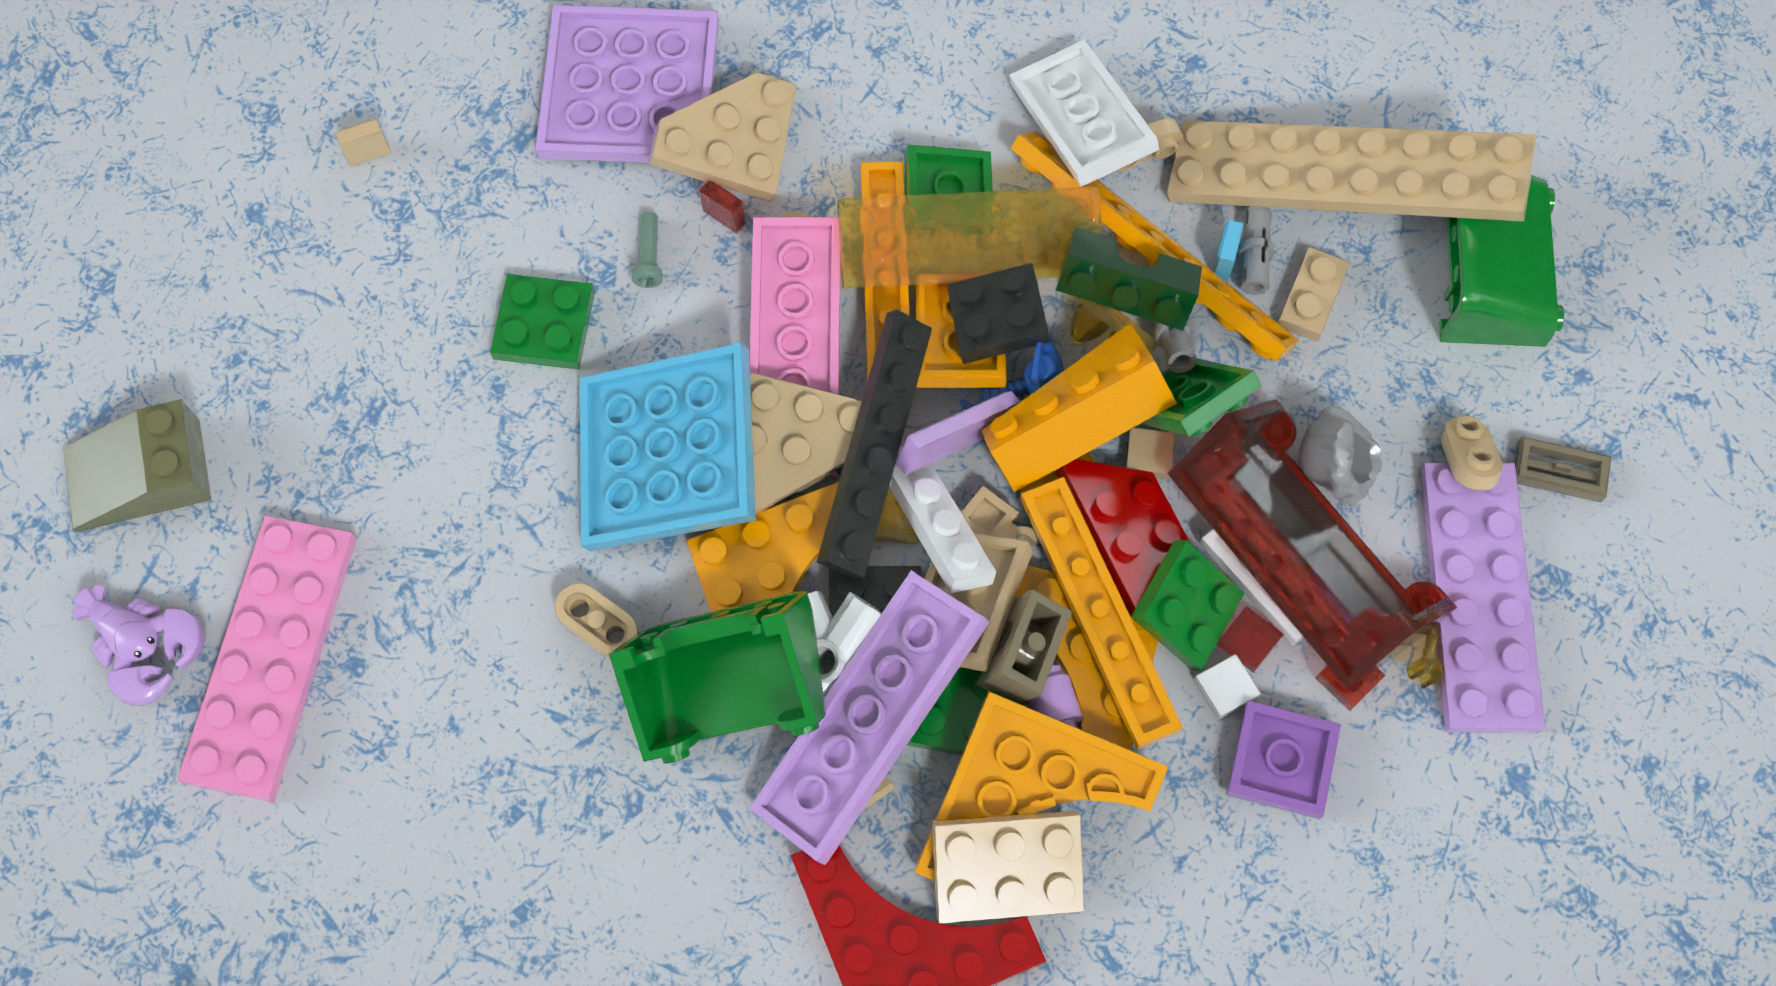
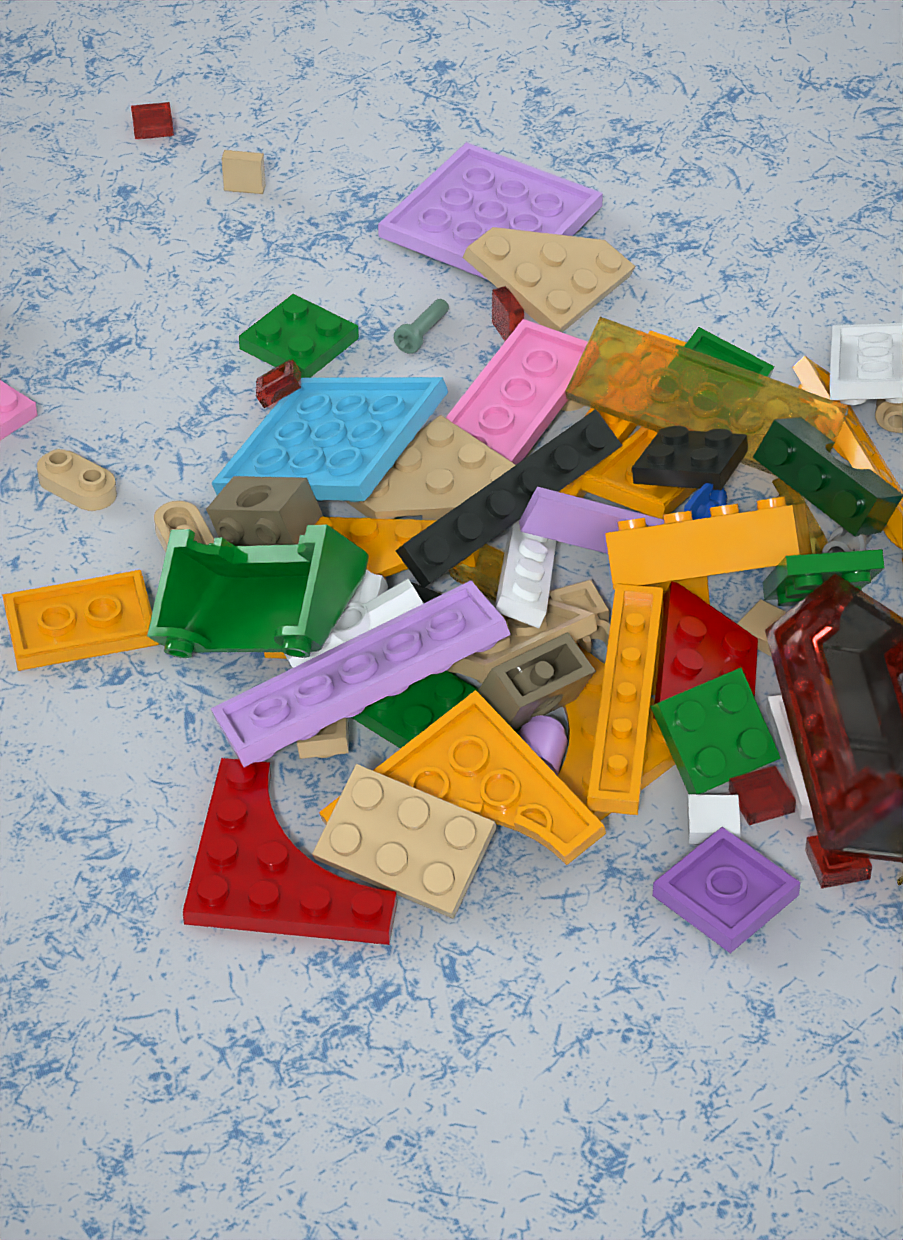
camera: 30 degrees right, 25 degrees down
(224, 111) = (152, 120): none -> clear red tile
(447, 599) = (76, 480): none -> tan plate
(559, 763) = (79, 619): none -> light orange tile
(567, 395) = (278, 383): none -> clear red tile
(634, 559) = (264, 510): none -> dark tan brick

